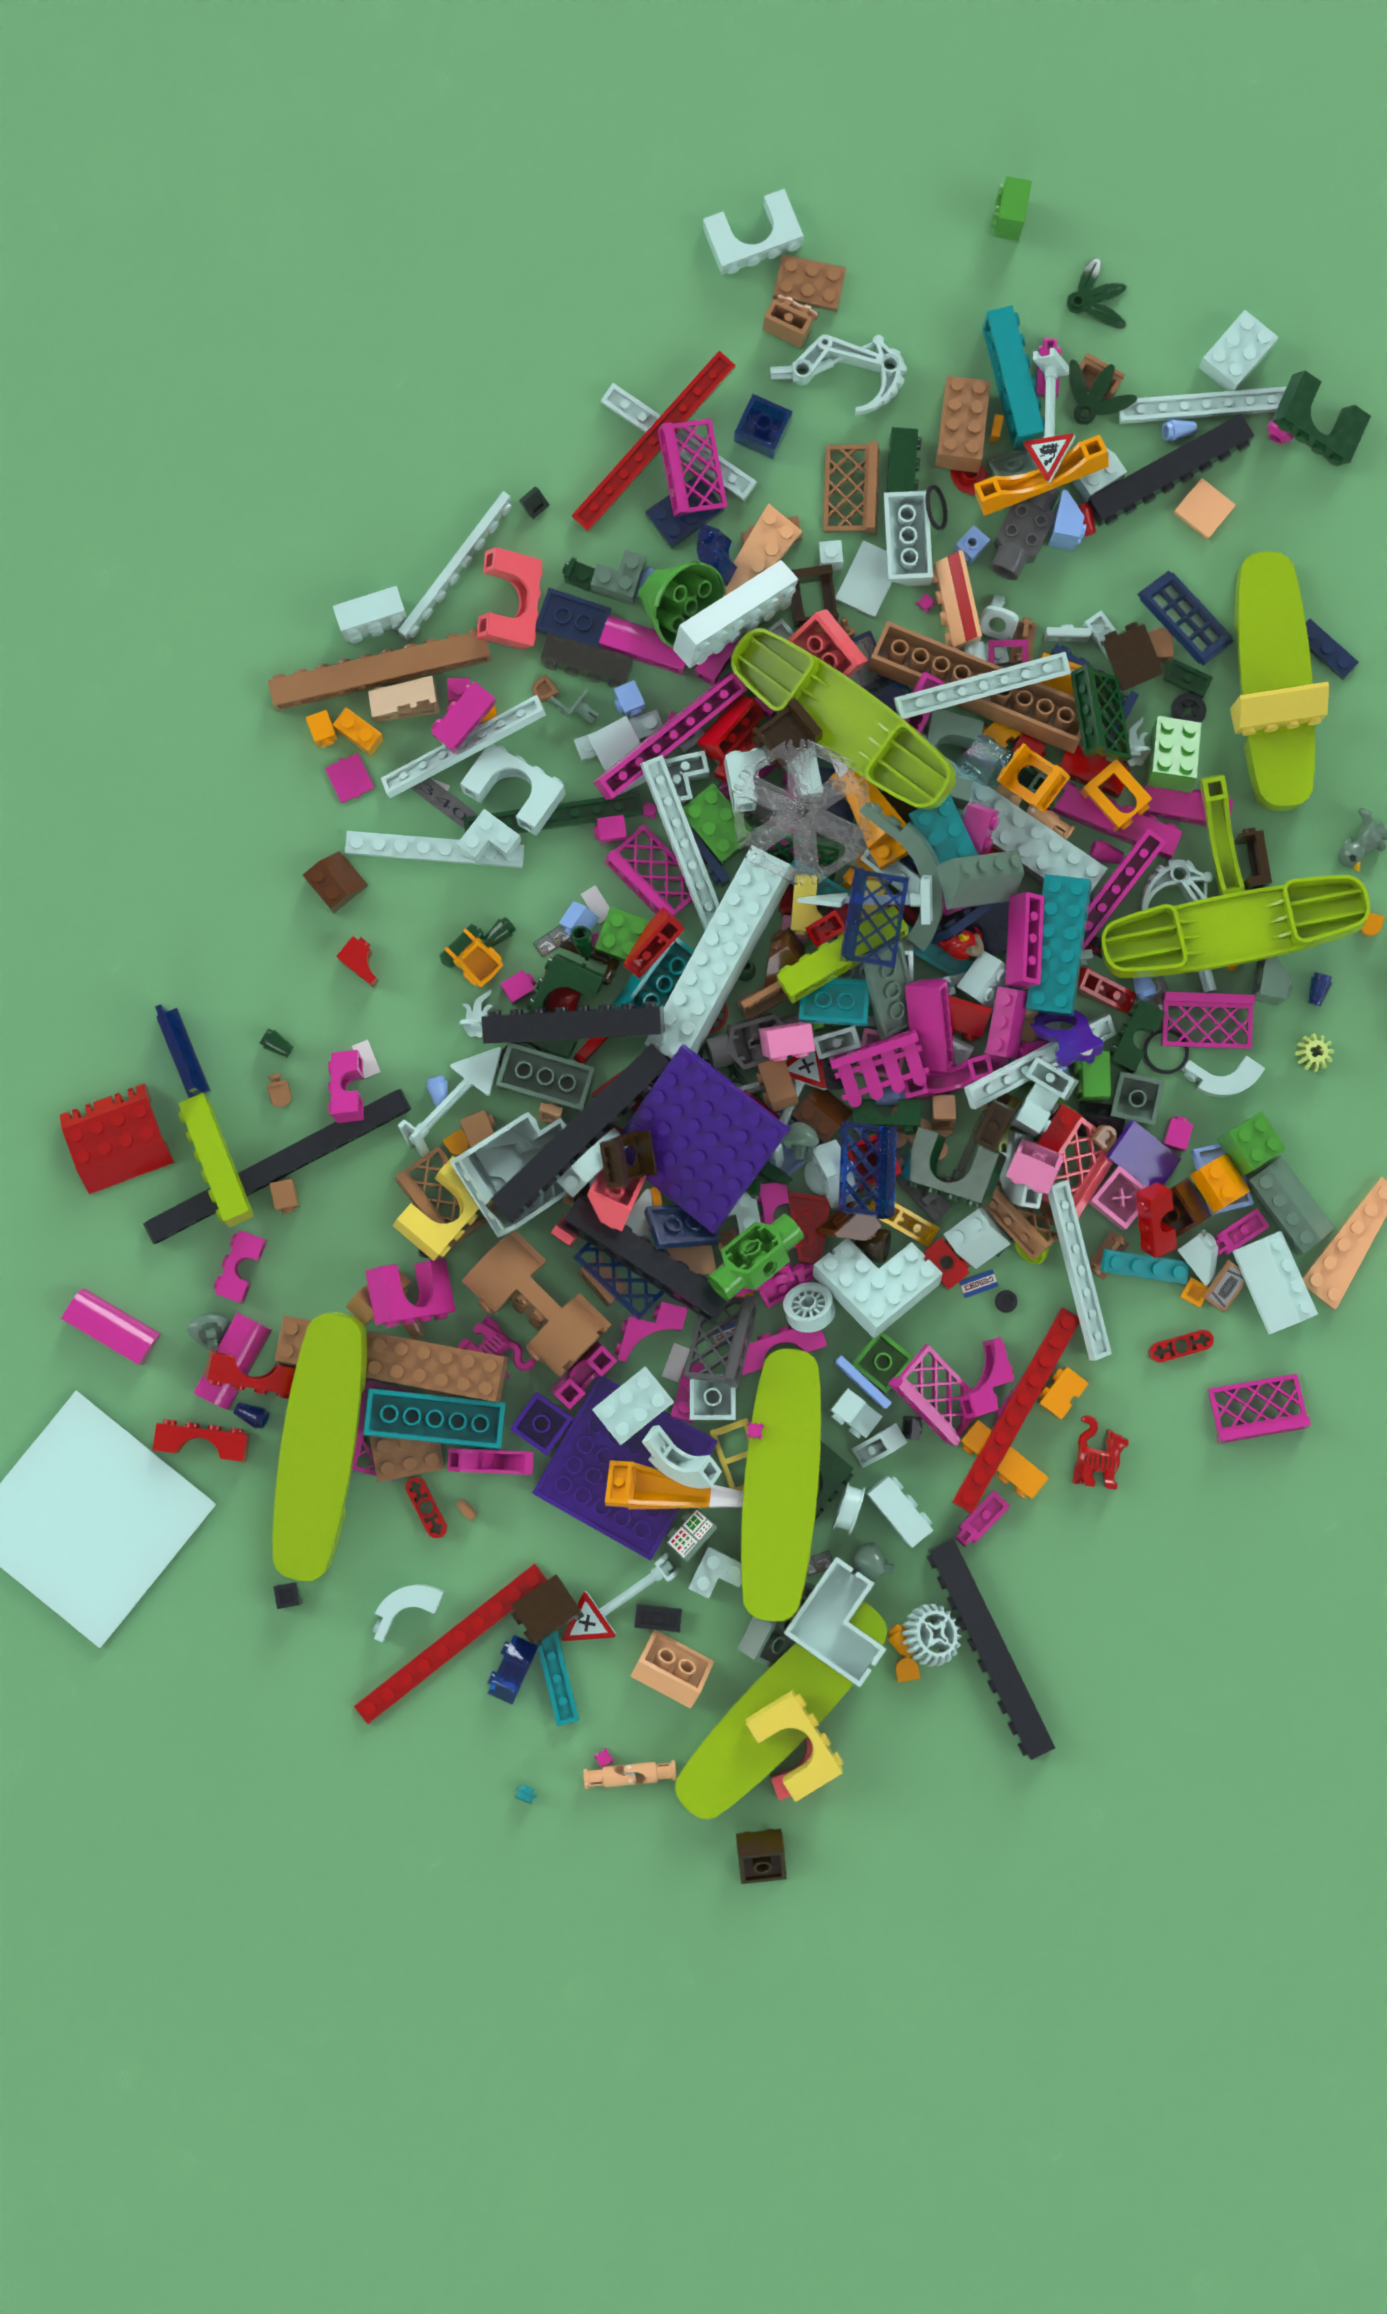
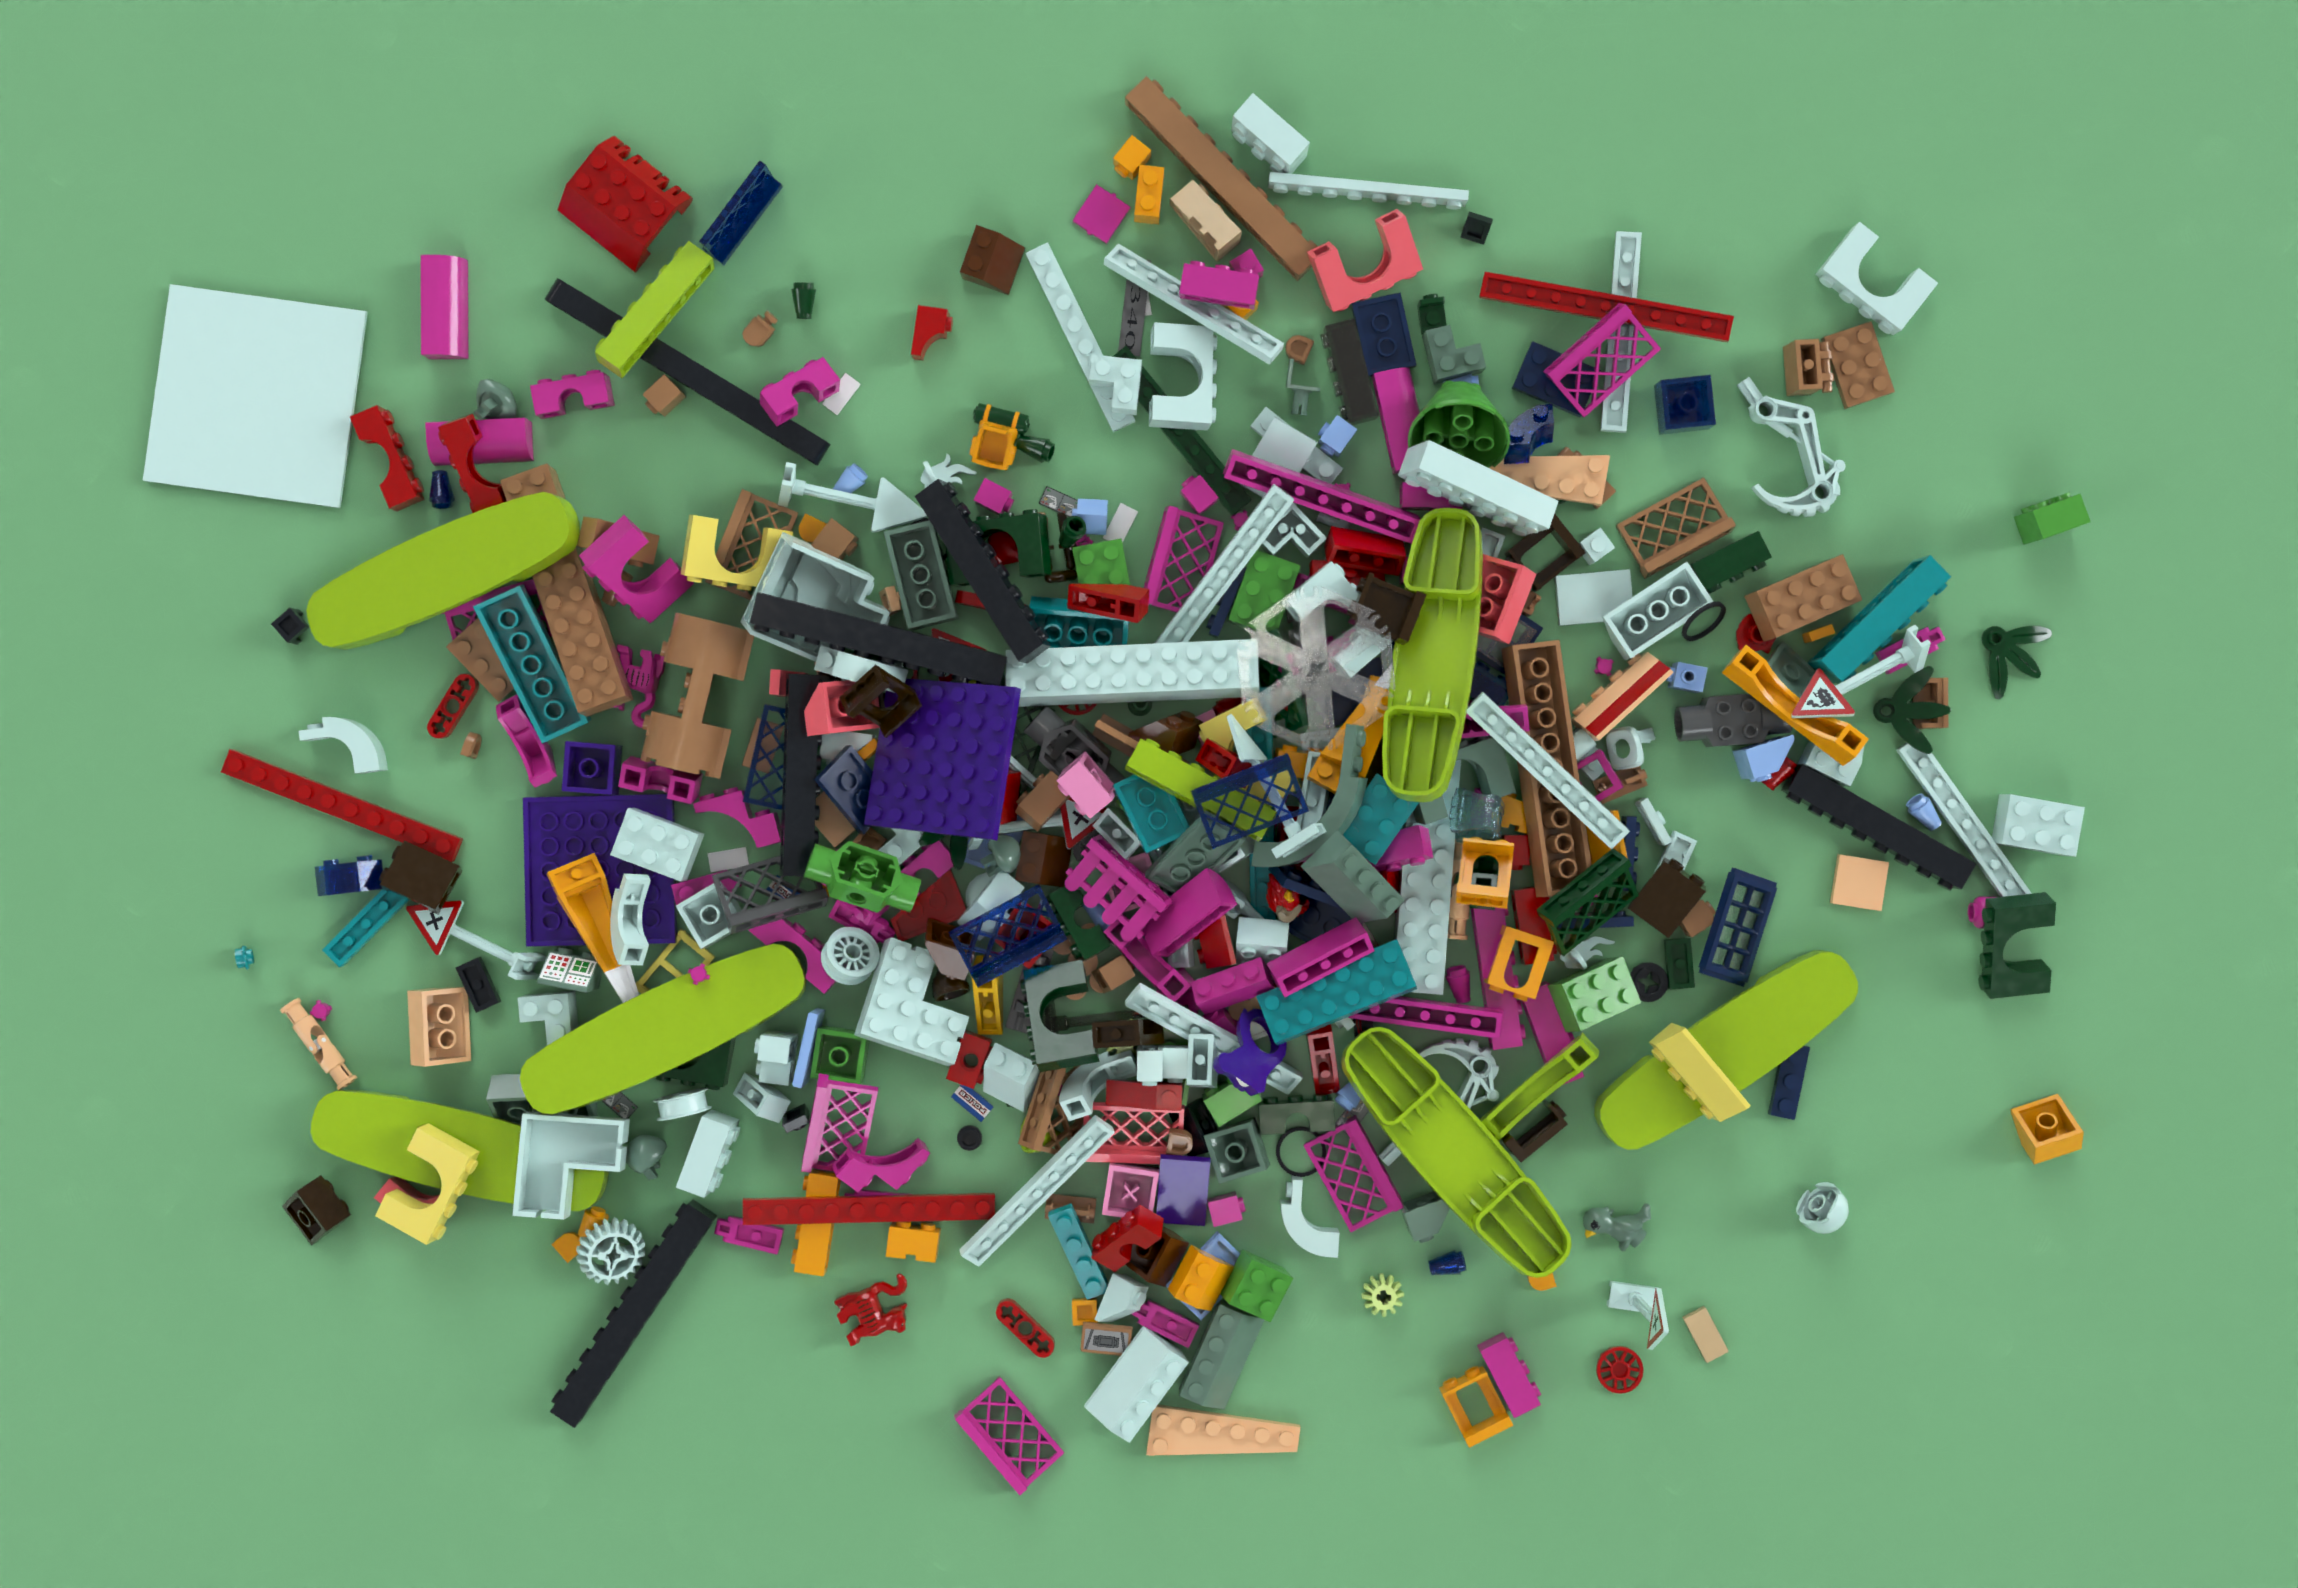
camera: 65 degrees right, 5 degrees up
(1034, 1166) = (1104, 1094): bright pink brick -> none

